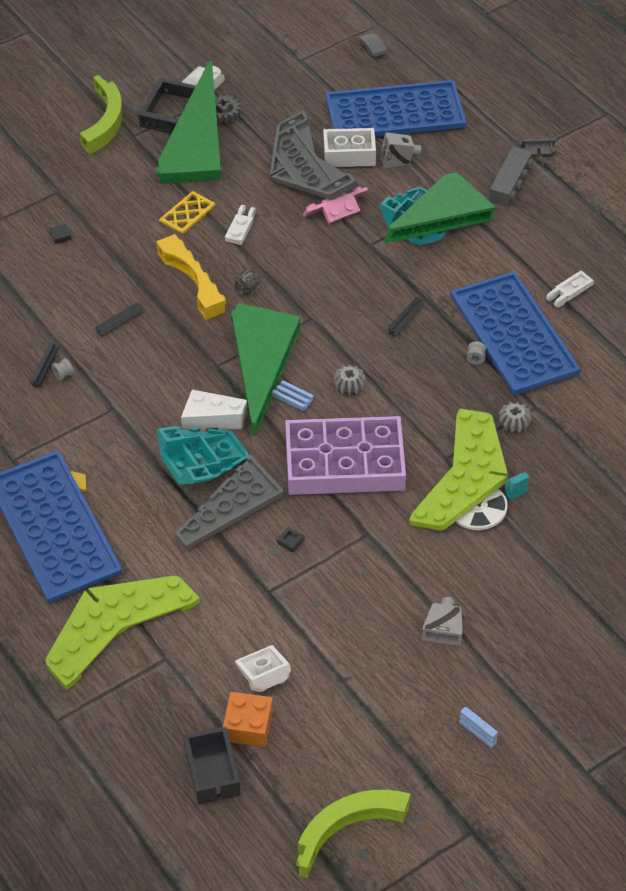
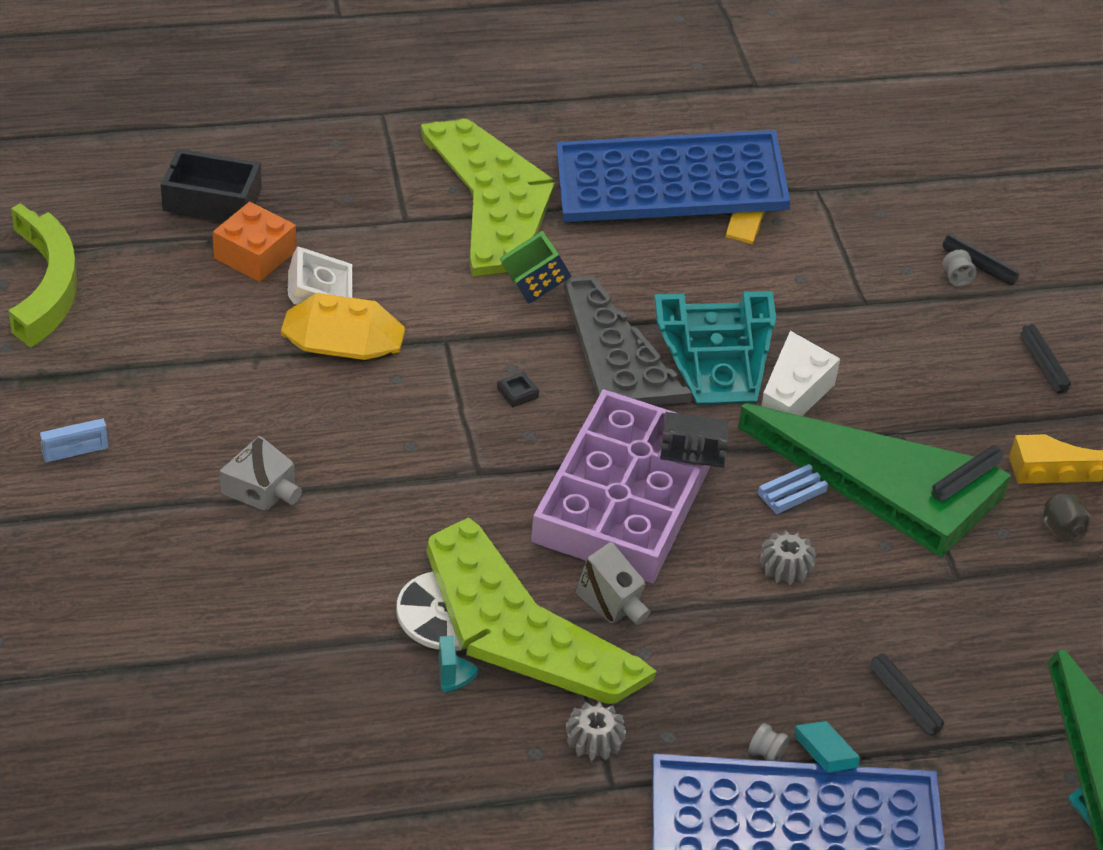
camera: 110 degrees right, 5 degrees down
(197, 549) = (535, 267): none -> piece
(252, 315) = (967, 473): none -> black axle
(301, 642) = (343, 327): none -> yellow wedge
(307, 423) = (694, 439): none -> black hinge
(423, 430) = (612, 586): none -> light grey torso
(463, 331) = (826, 746): none -> teal tile

